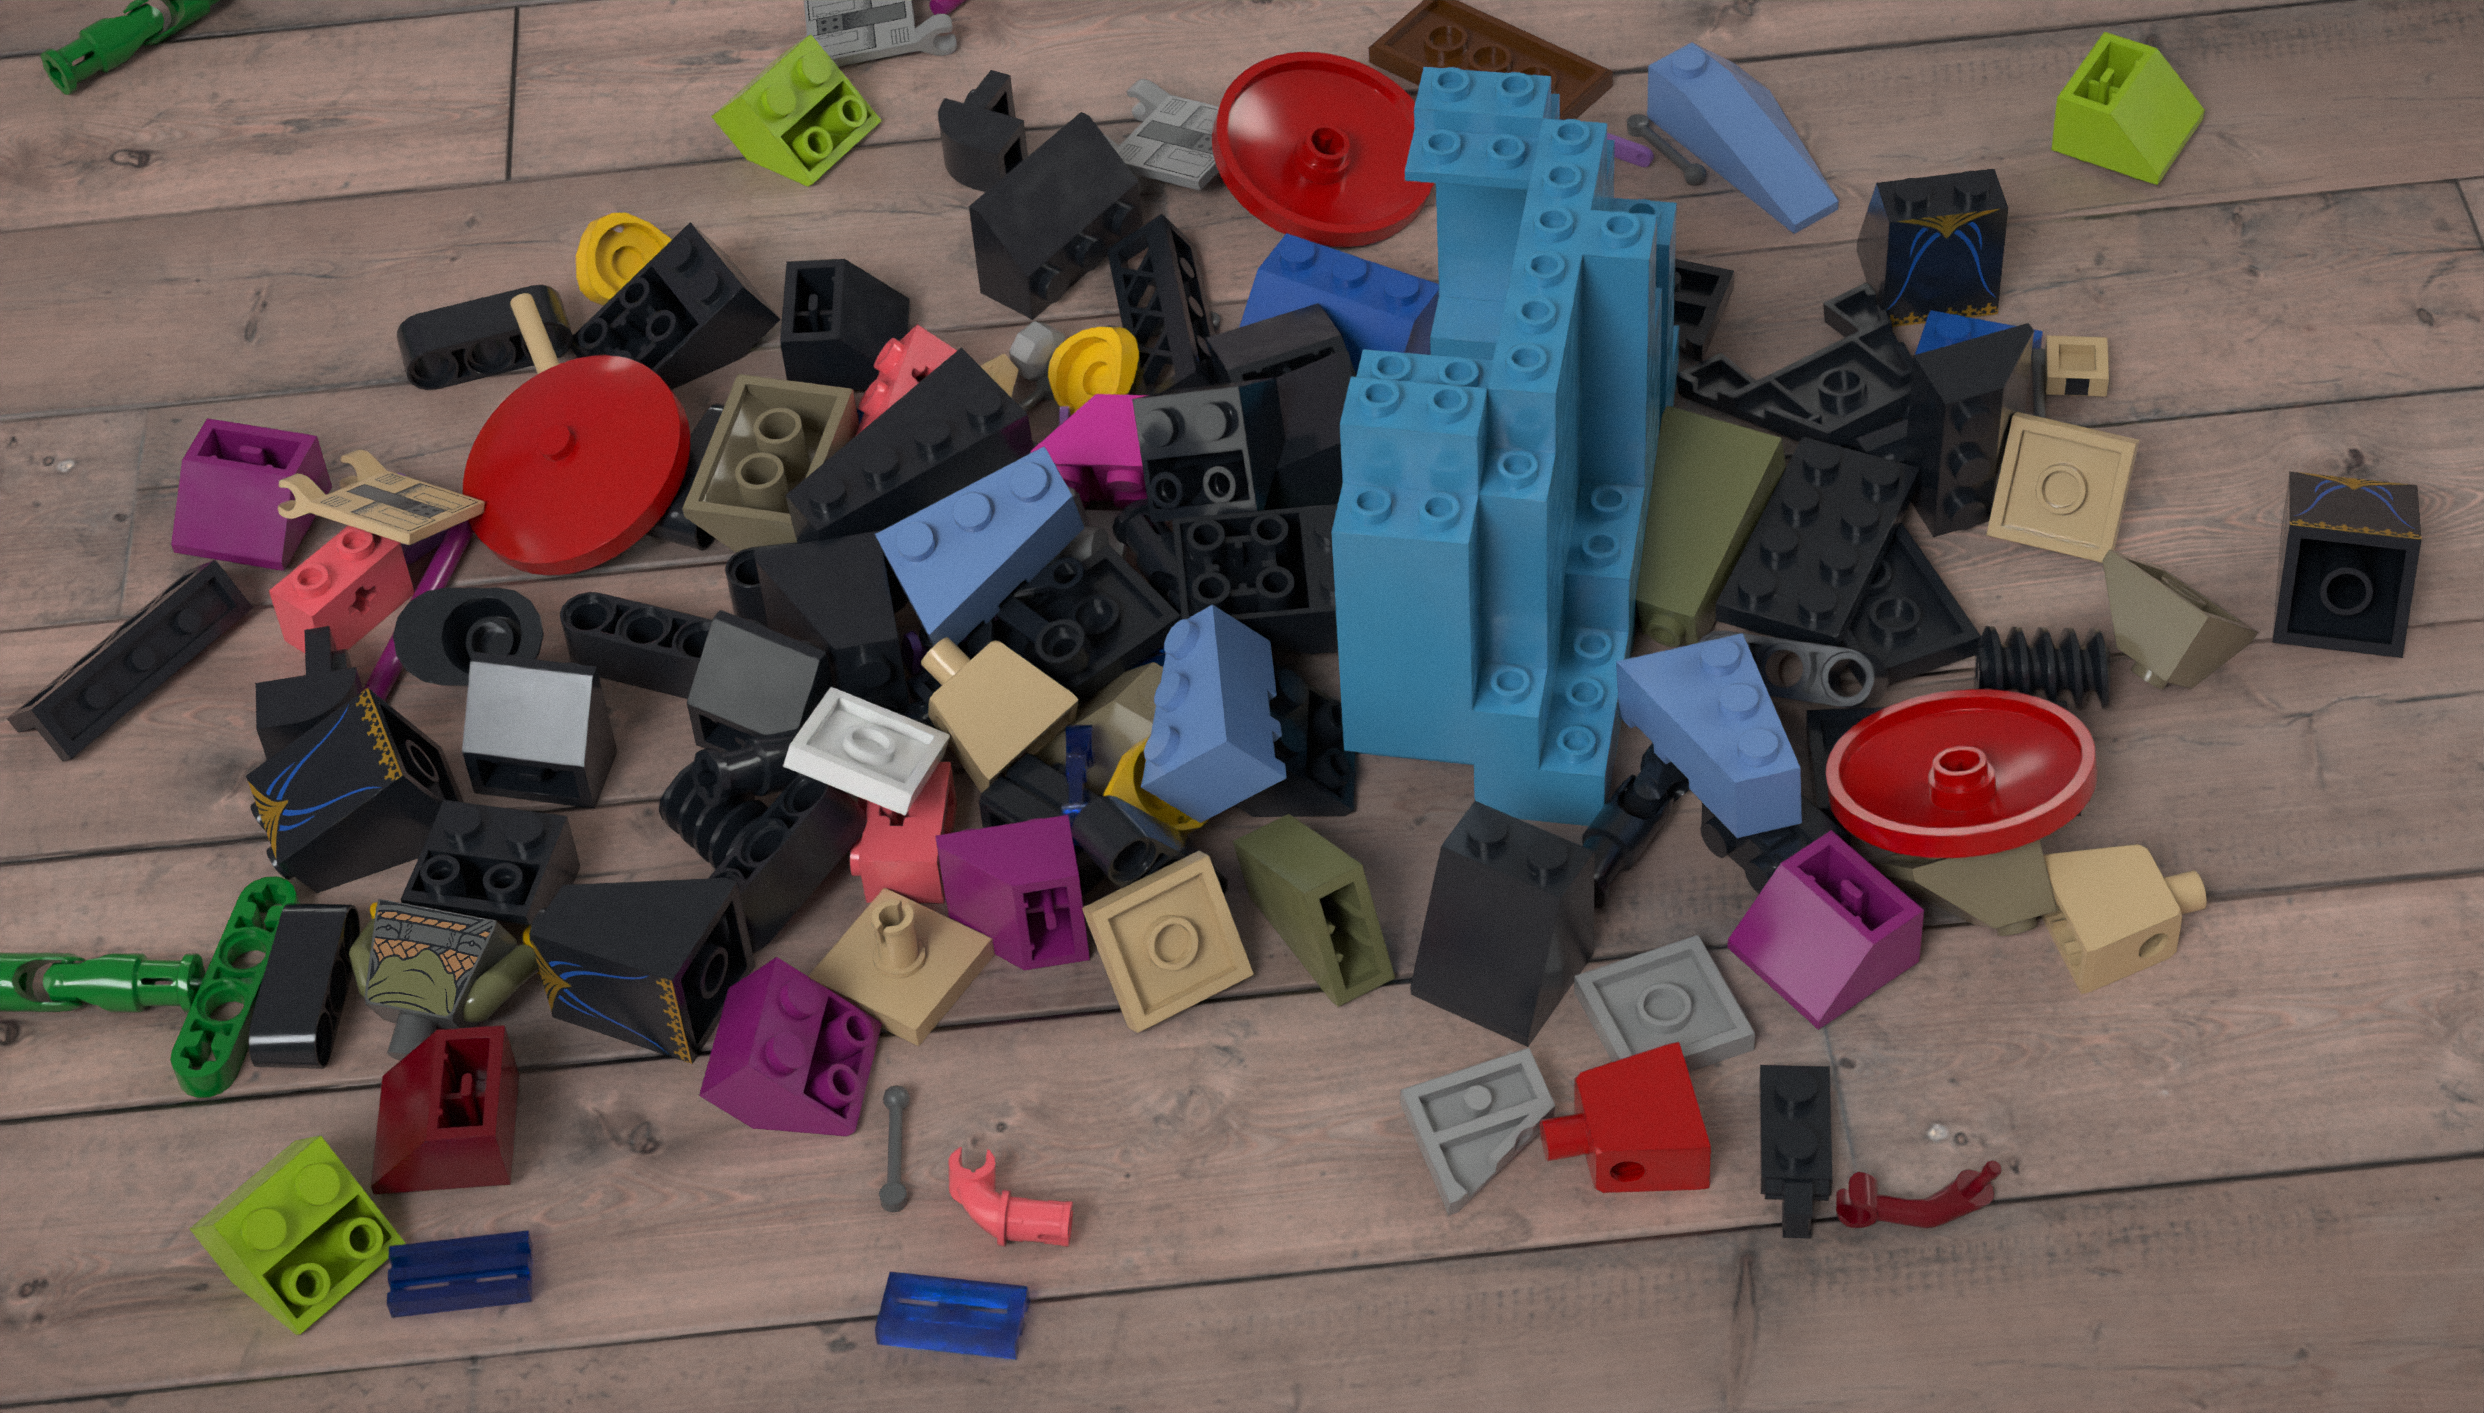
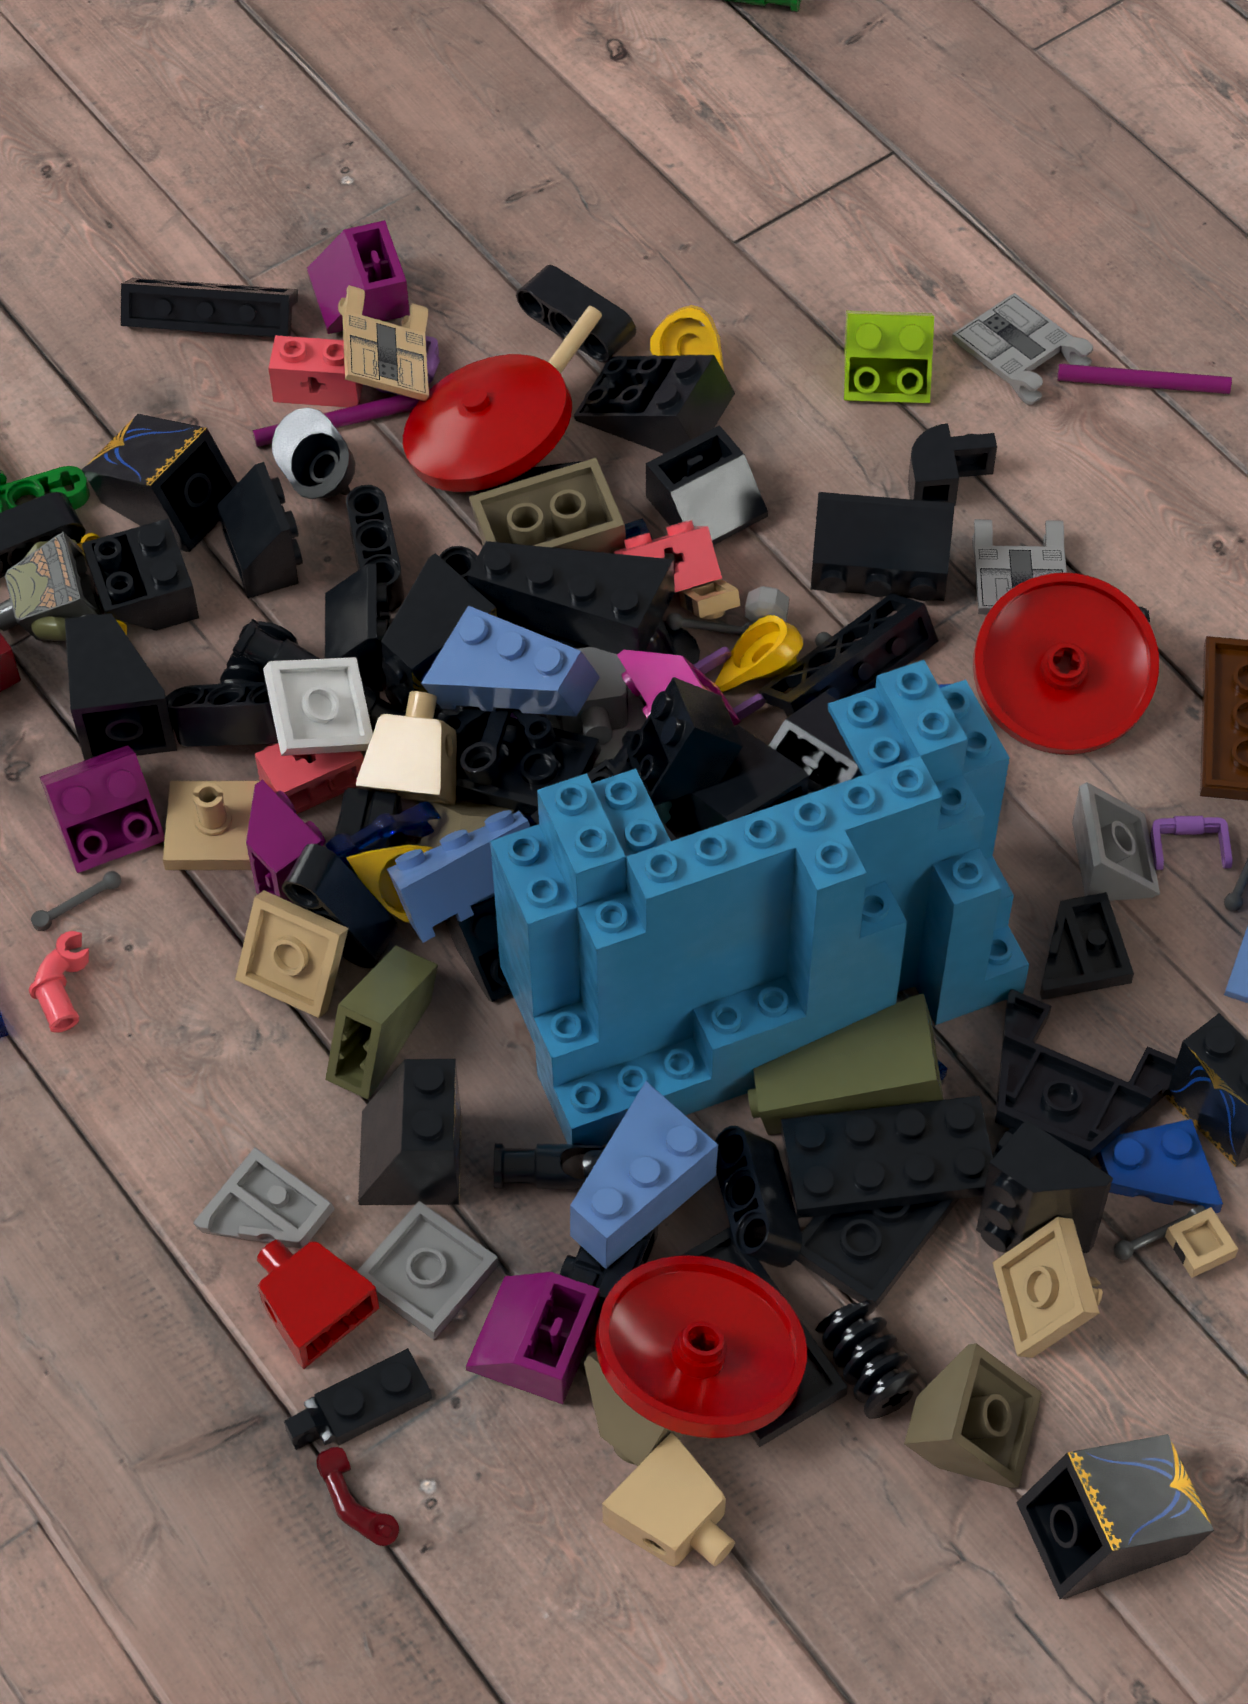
camera: 55 degrees right, 10 degrees up
(298, 703) = (224, 414): black brick -> none

